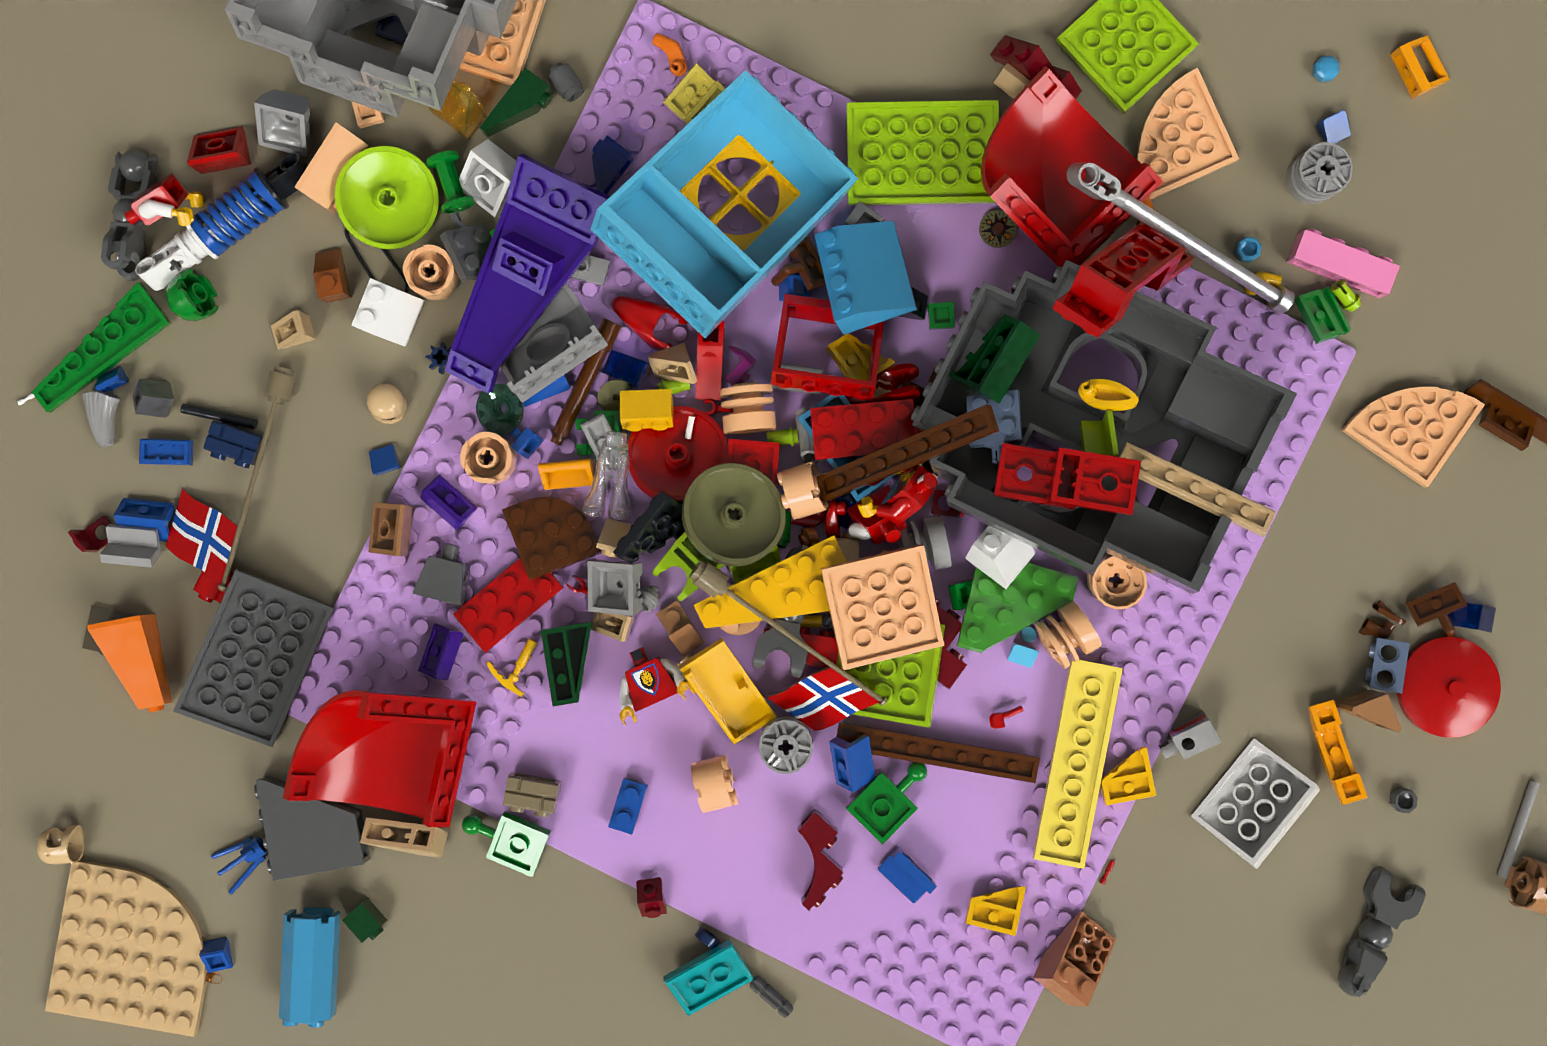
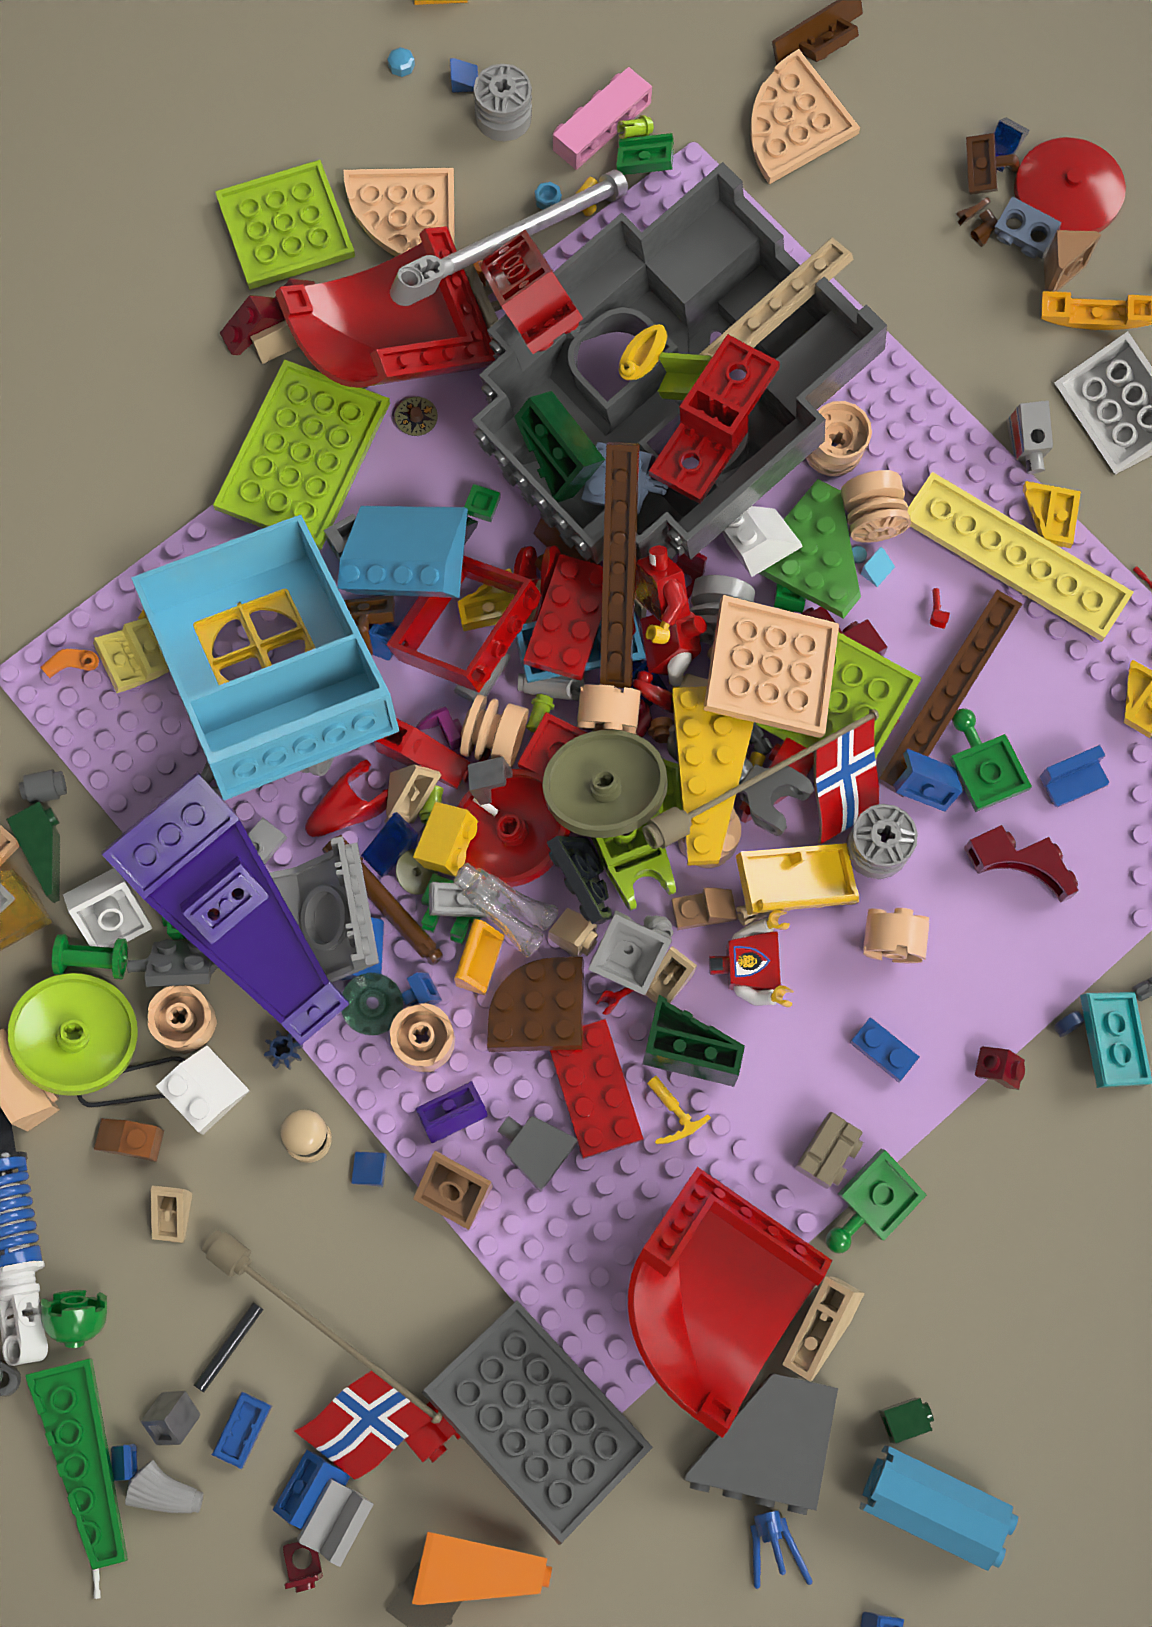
camera: 75 degrees left, 15 degrees down
(233, 442) = (271, 1338): dark blue brick -> none
(440, 652) = (621, 1193): dark purple slope -> none
(609, 163) = (153, 771): clear blue slope -> none
(705, 421) = (486, 776): none -> flat silver panel

